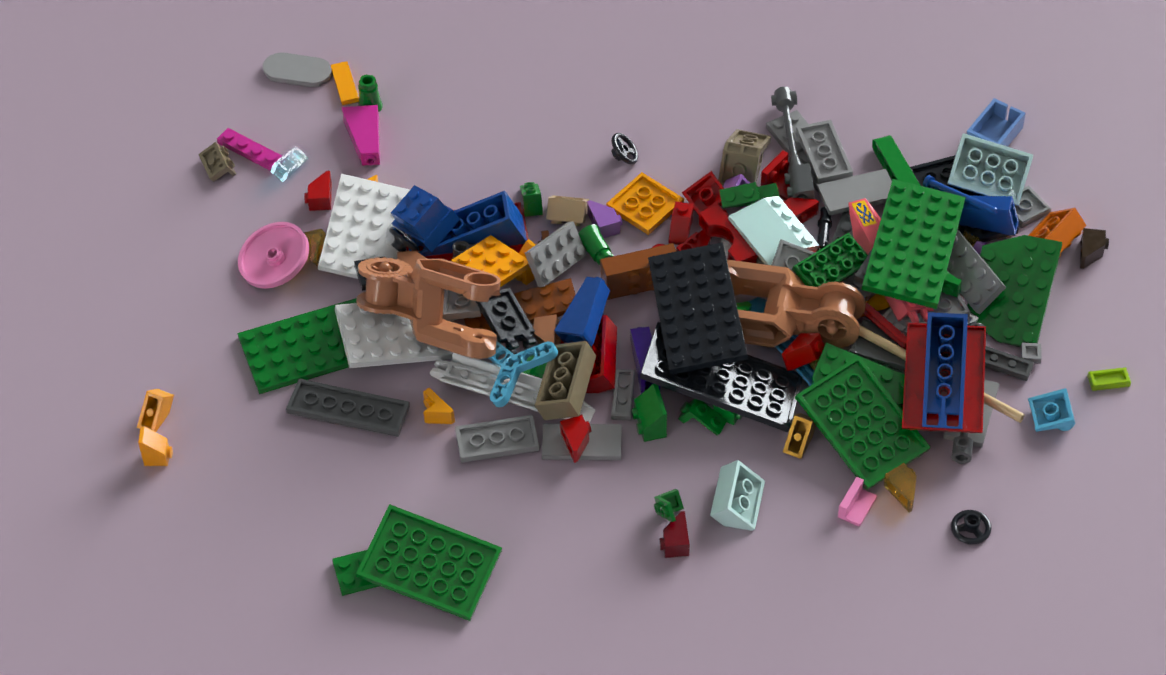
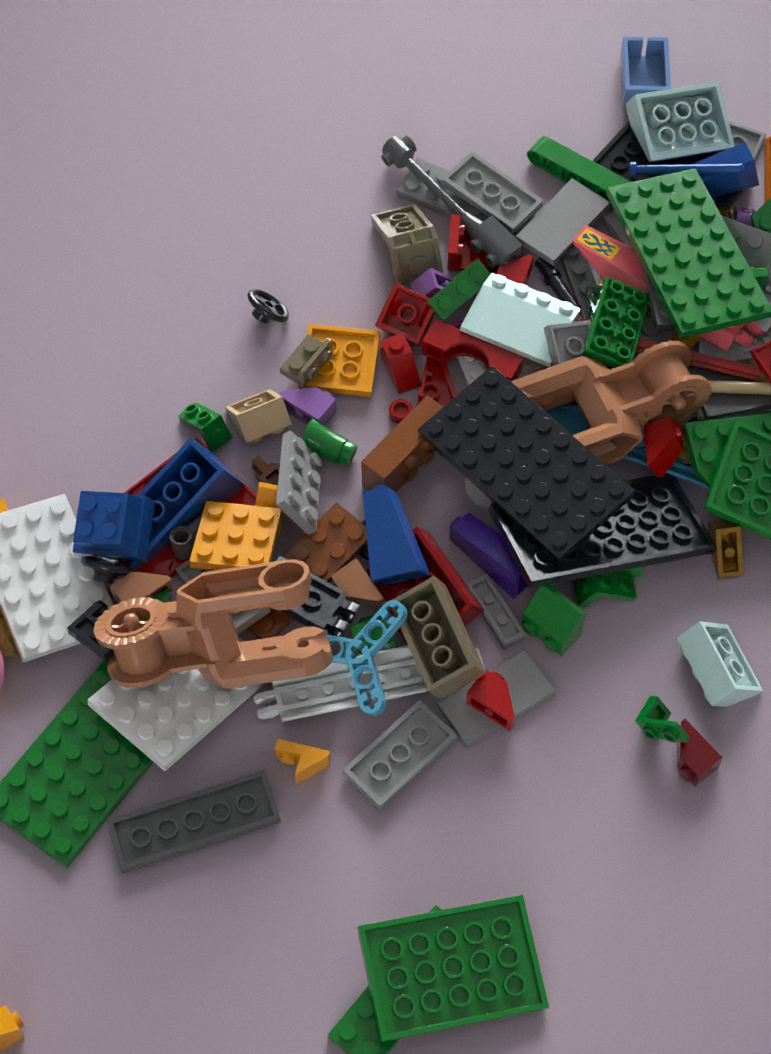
camera: 35 degrees left, 10 degrees up
(622, 191) = (307, 360): none -> dark tan bracket

